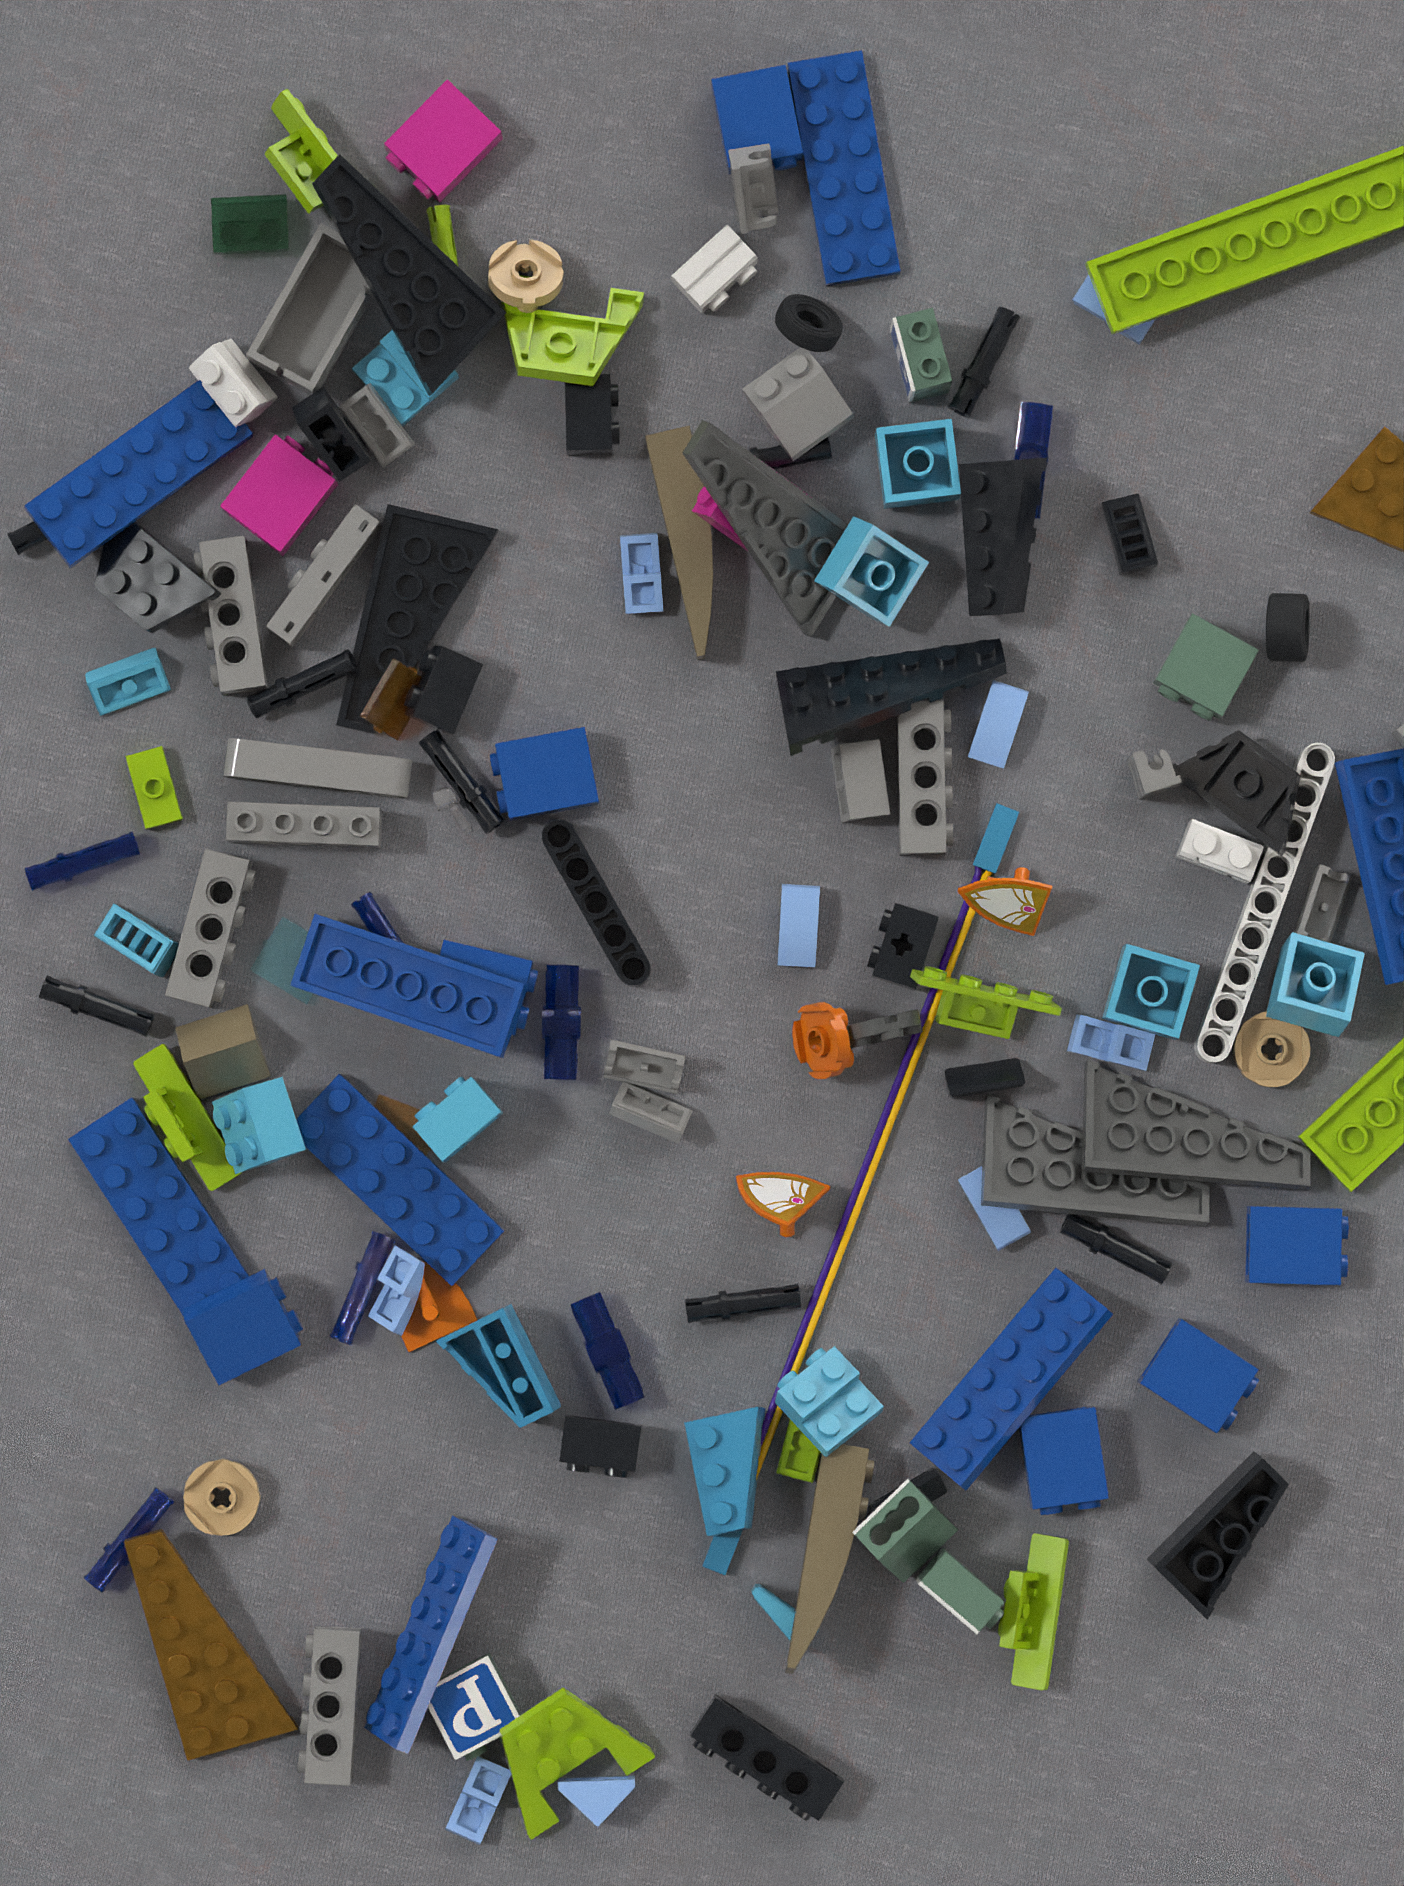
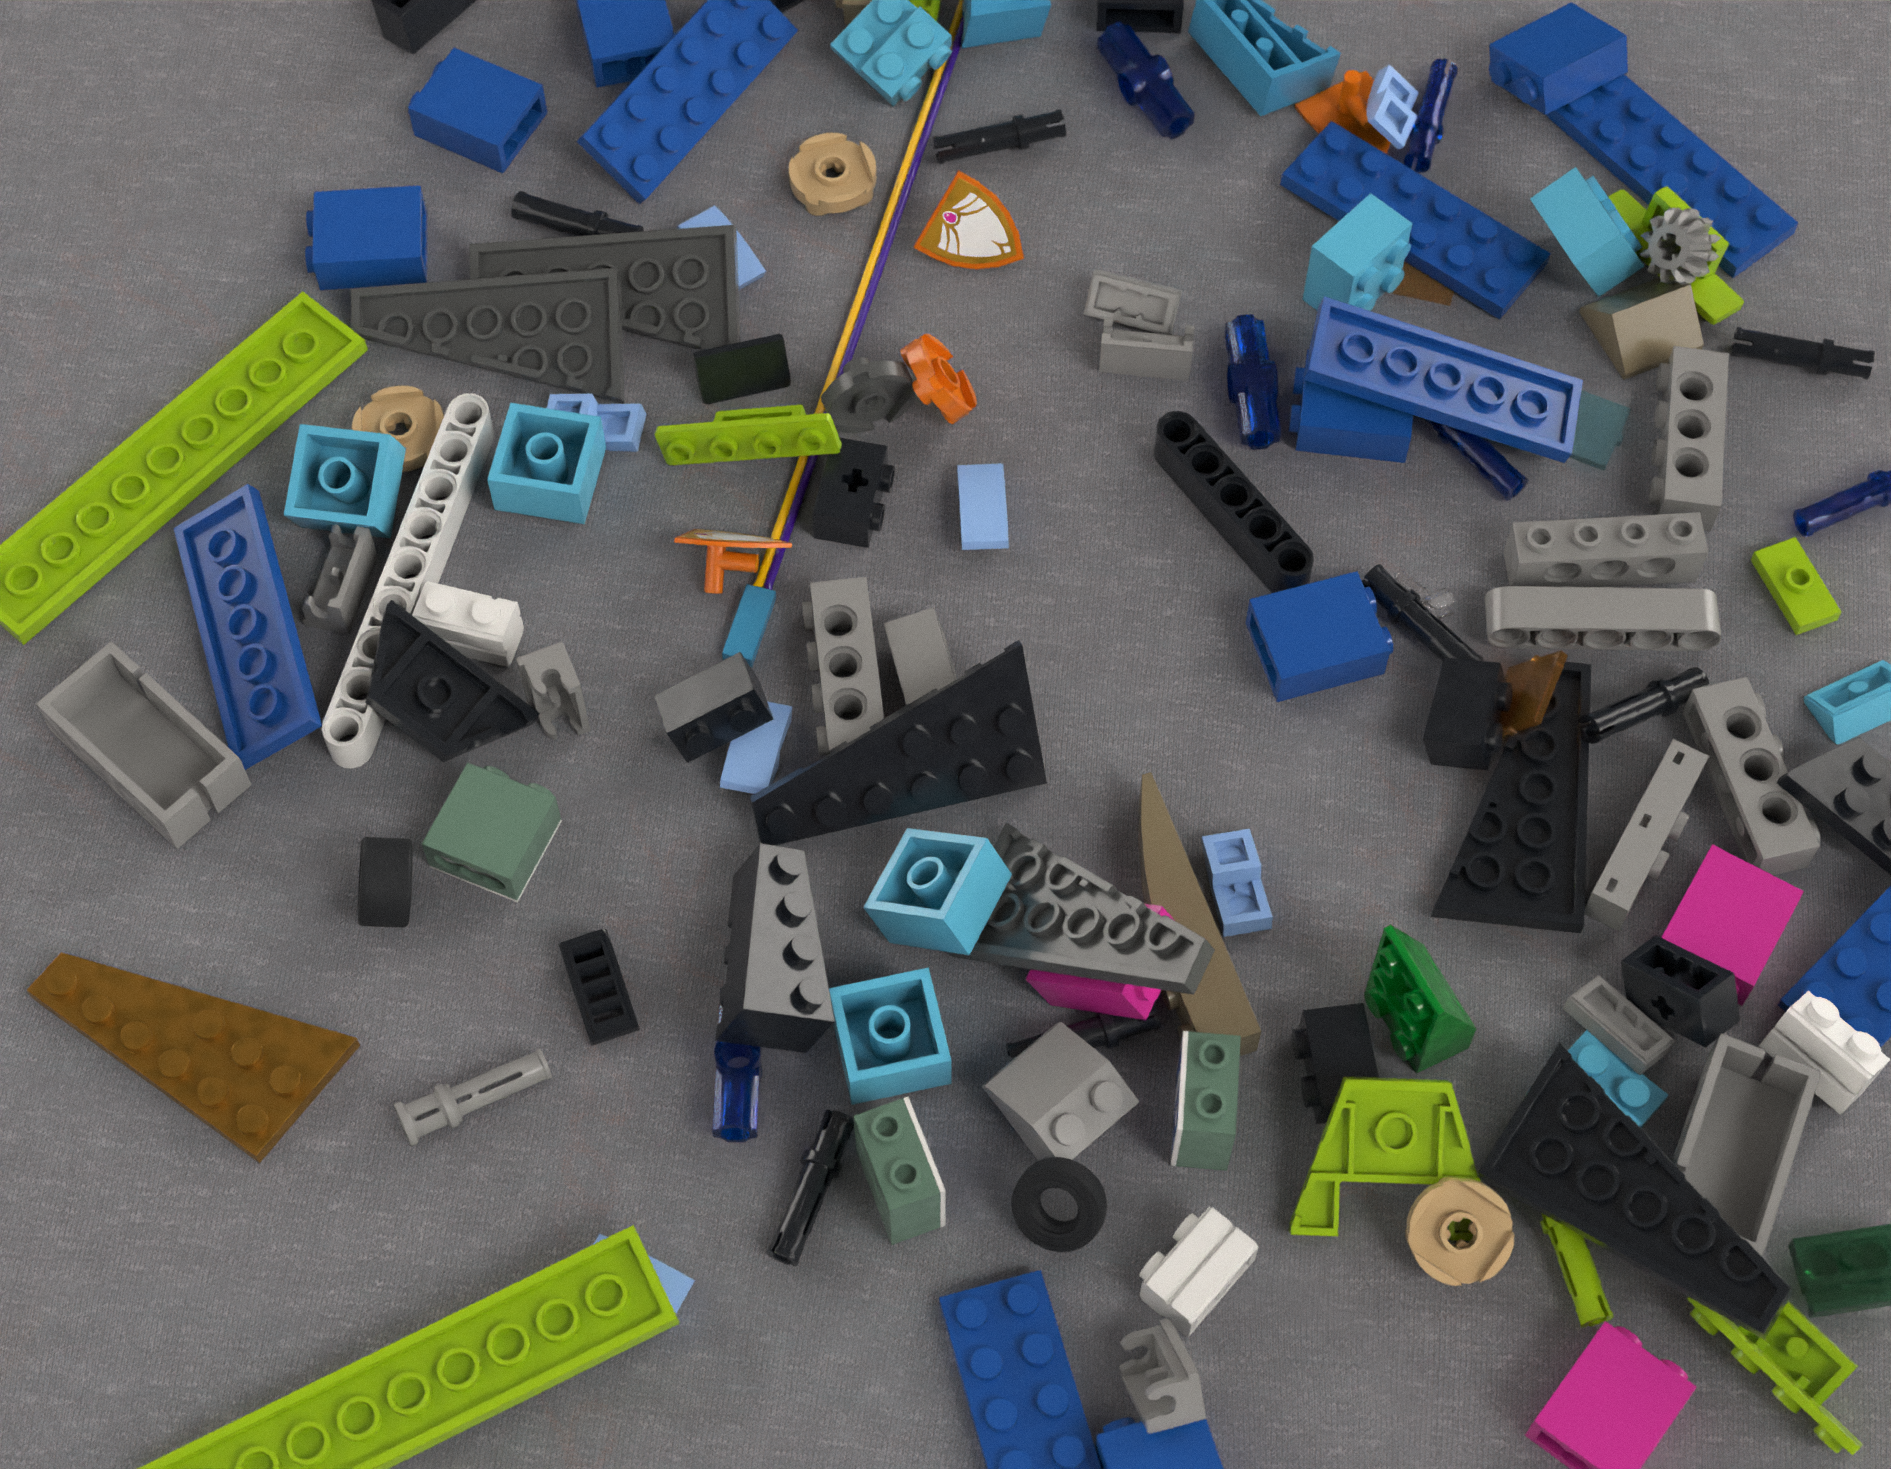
camera: 175 degrees right, 25 degrees down
(163, 958) = (1765, 435): medium azure slope -> none
(186, 1095) = (1676, 230): none -> light grey gear
(520, 443) = (1416, 1002): none -> green slope
(693, 384) = (1205, 1100): none -> sand green piece
(904, 1259) = (835, 194): none -> tan plate
(1029, 748) = (713, 707): none -> black piece
(1243, 451) = (532, 1070): none -> light grey pin

